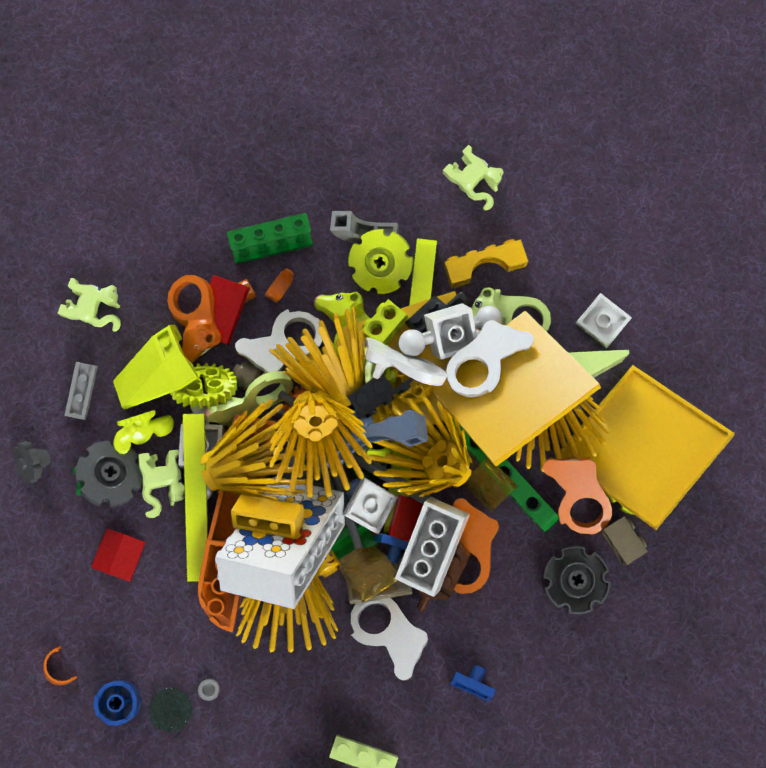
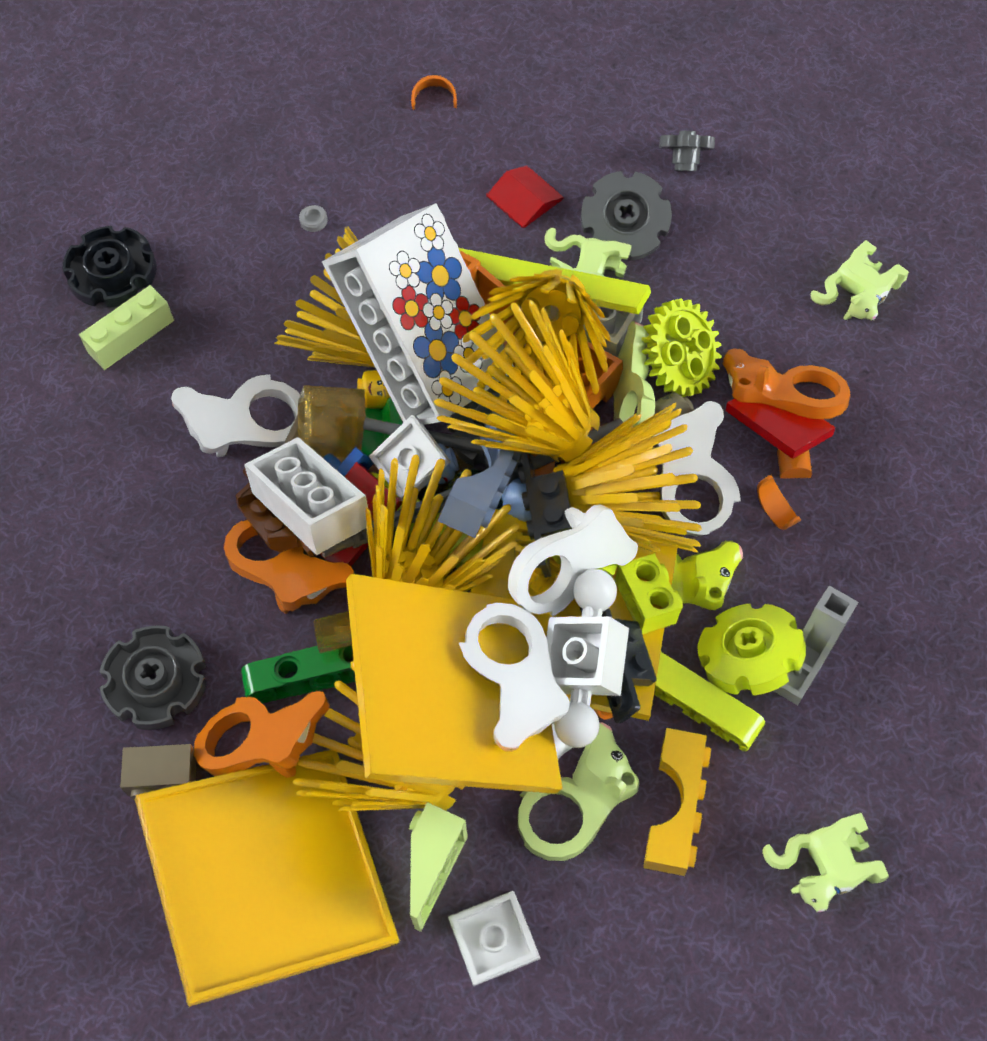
camera: 125 degrees right, 15 degrees down
(81, 390) = (751, 233): light grey hinge -> none
(105, 698) = (357, 124): blue brick -> none
(140, 429) = (665, 266): neon yellow animal -> none
(155, 370) = (729, 296): neon yellow wedge -> none
(176, 706) = (325, 178): tile -> none
(268, 516) = (455, 295): yellow brick -> none
(270, 238) = (855, 515): green fence -> none
(473, 683) = (118, 483): blue tile -> none

